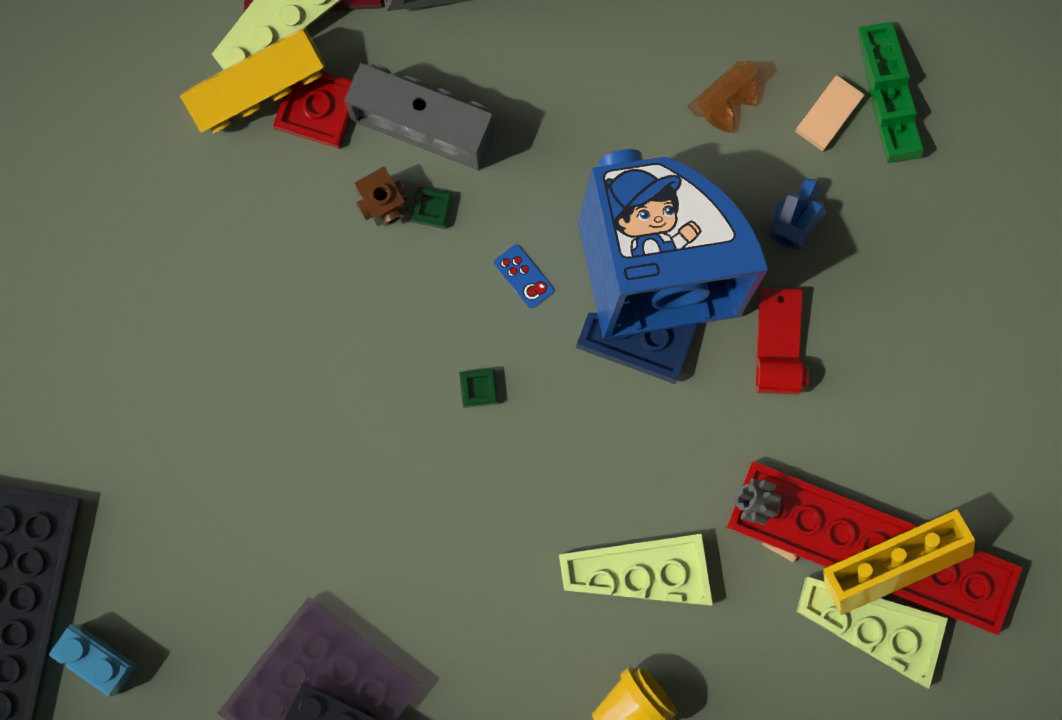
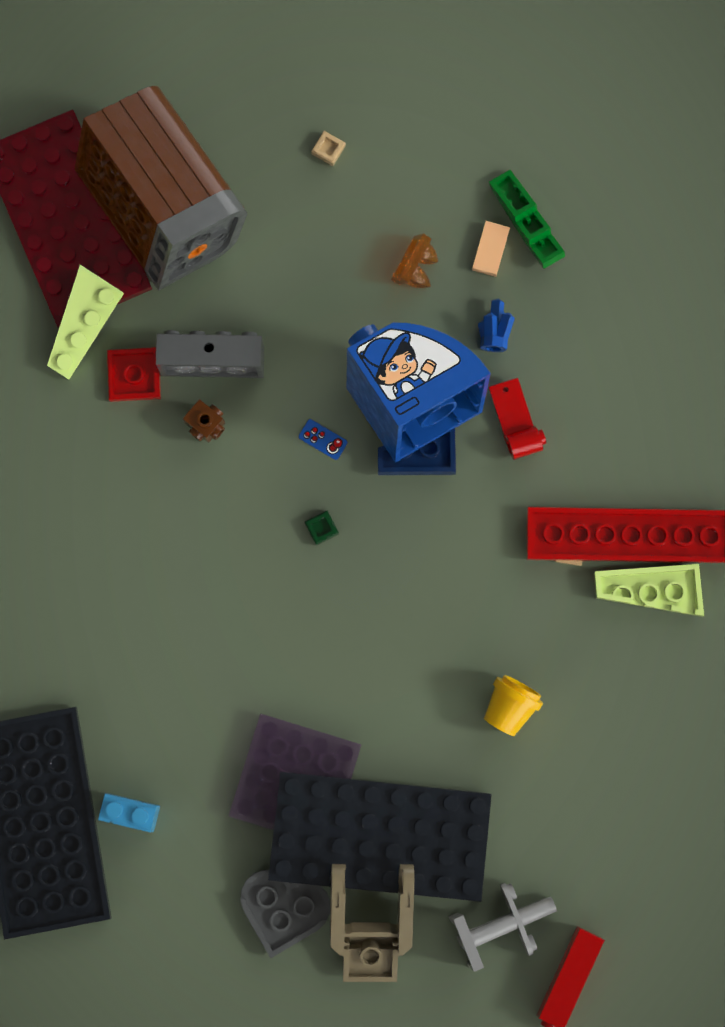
camera: 20 degrees left, 0 degrees up
(253, 80) = (84, 372): yellow brick -> none
(431, 207) = (241, 415): dark green tile -> none
(645, 570) = (487, 607): yellowish green wing -> none
(758, 501) = (542, 532): dark grey gear -> none
(899, 562) = (651, 538): yellow brick -> none

